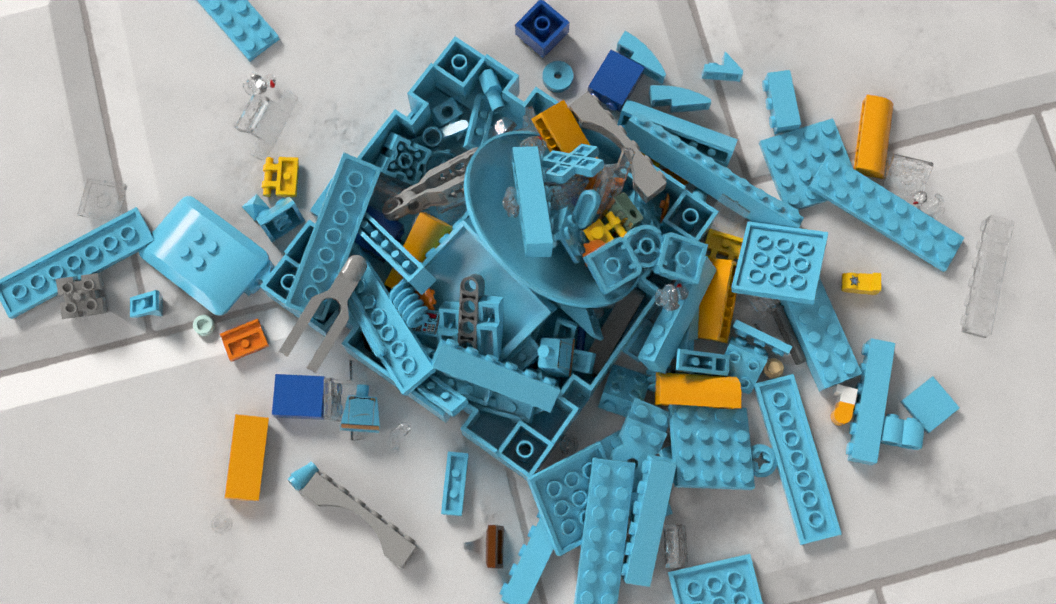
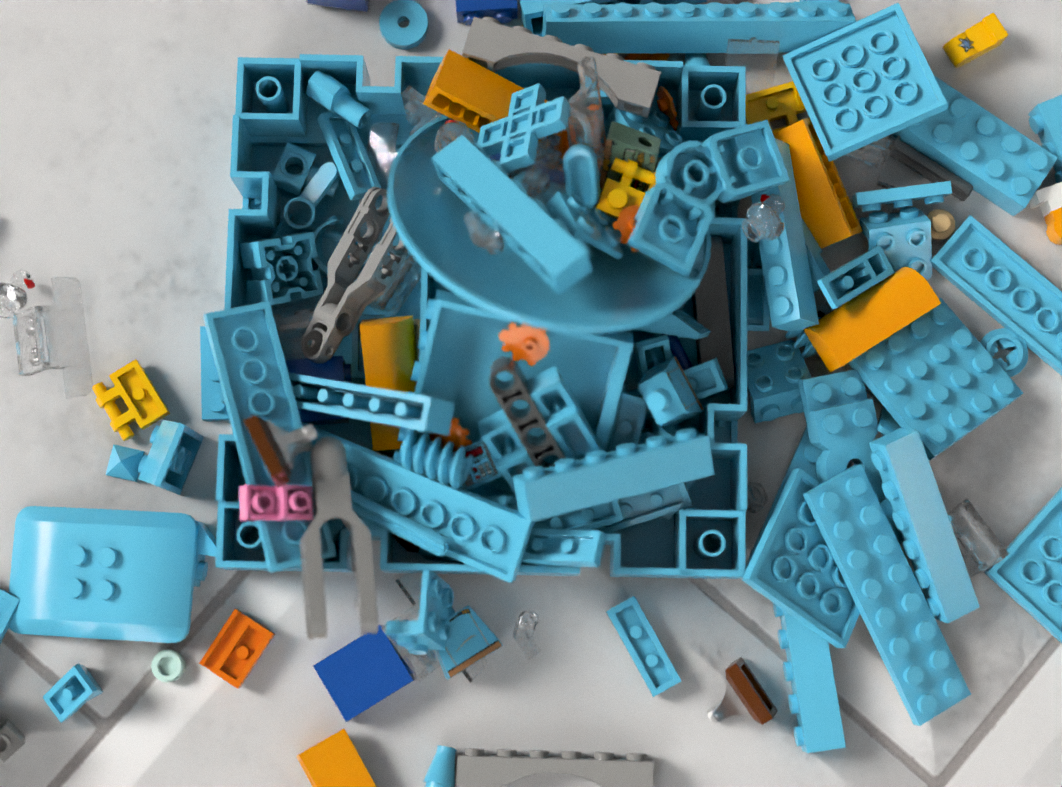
camera: 35 degrees left, 5 degrees up
(311, 272) = (275, 503): none -> bright pink slope
(331, 243) = (279, 446): none -> piece
(352, 386) = (432, 625): none -> medium azure bracket
(494, 274) = (525, 343): none -> orange piece

